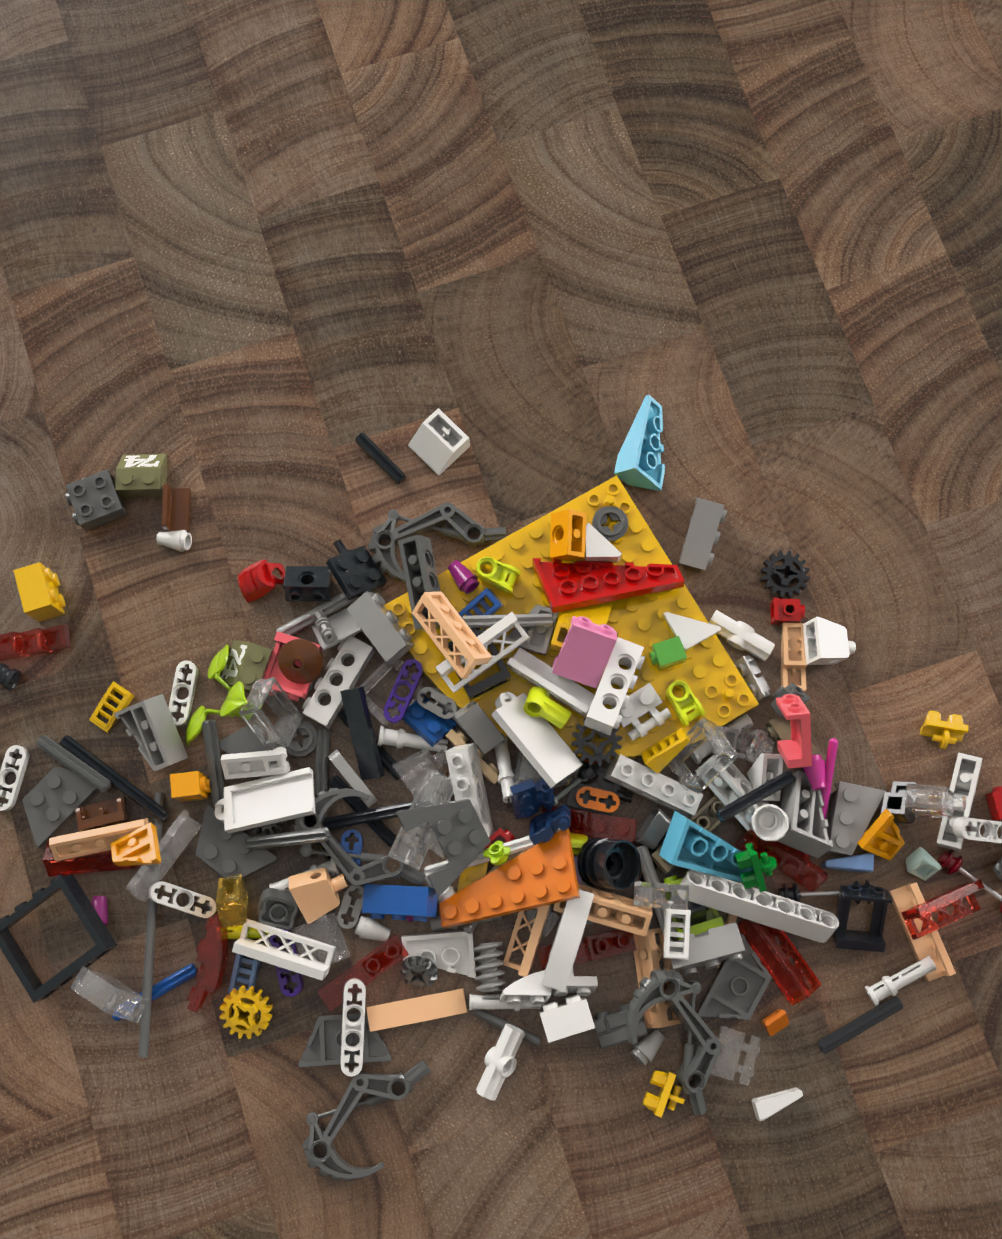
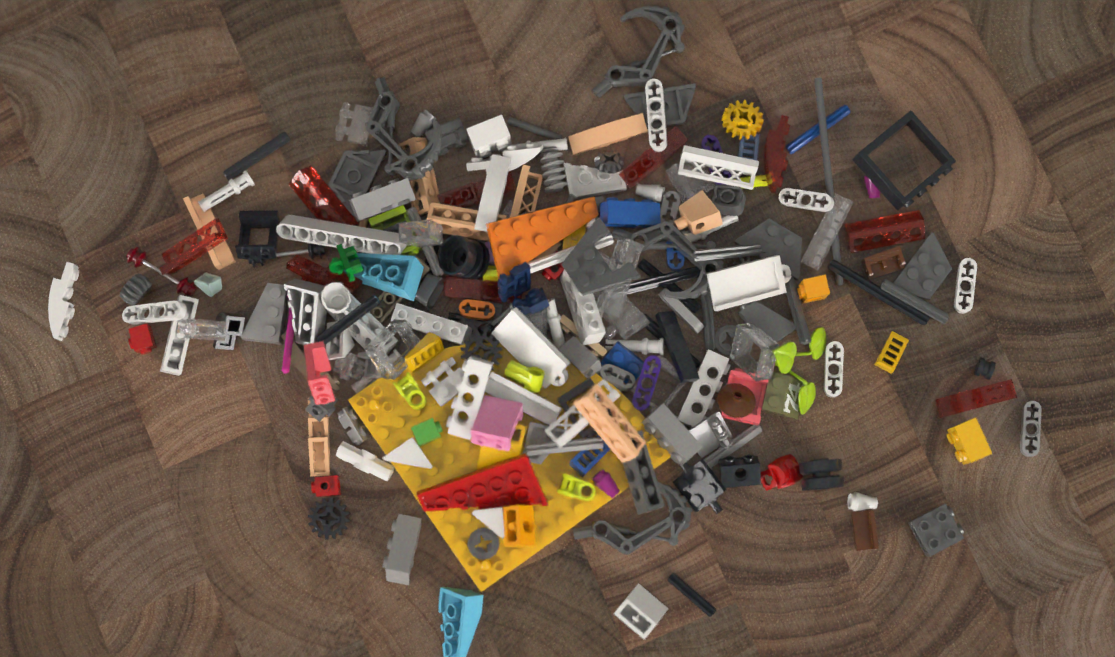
camera: 175 degrees right, 5 degrees up
(91, 840) = (880, 241): light nougat fence -> none
(110, 994) = (850, 120): clear window -> none
(137, 847) = (847, 233): light orange wing -> none
(141, 475) = (900, 560): olive slope -> none
(154, 731) = (851, 332): light grey wedge -> none
(214, 569) = (821, 474): none -> black wheel
(232, 901) = (765, 201): clear yellow brick -> none
(255, 763) = (761, 310): white plate -> none
(497, 853) = (552, 251): lime plate -> none
(500, 1062) = (538, 101): white piece -> none
(658, 1103) = (408, 99): yellow hips -> none
(676, 913) = (412, 187): white slope -> none
(770, 1104) = (323, 91): white slope -> none
(775, 1022) = (324, 152): orange slope -> none
(816, 773) = (298, 342): dark pink cone -> none
(826, 642) = (292, 459): white torso -> none
(858, 863) = (260, 279): medium blue slope -> none
(882, 837) = (242, 299): light orange wing -> none
(944, 731) = (189, 394): yellow hips -> none

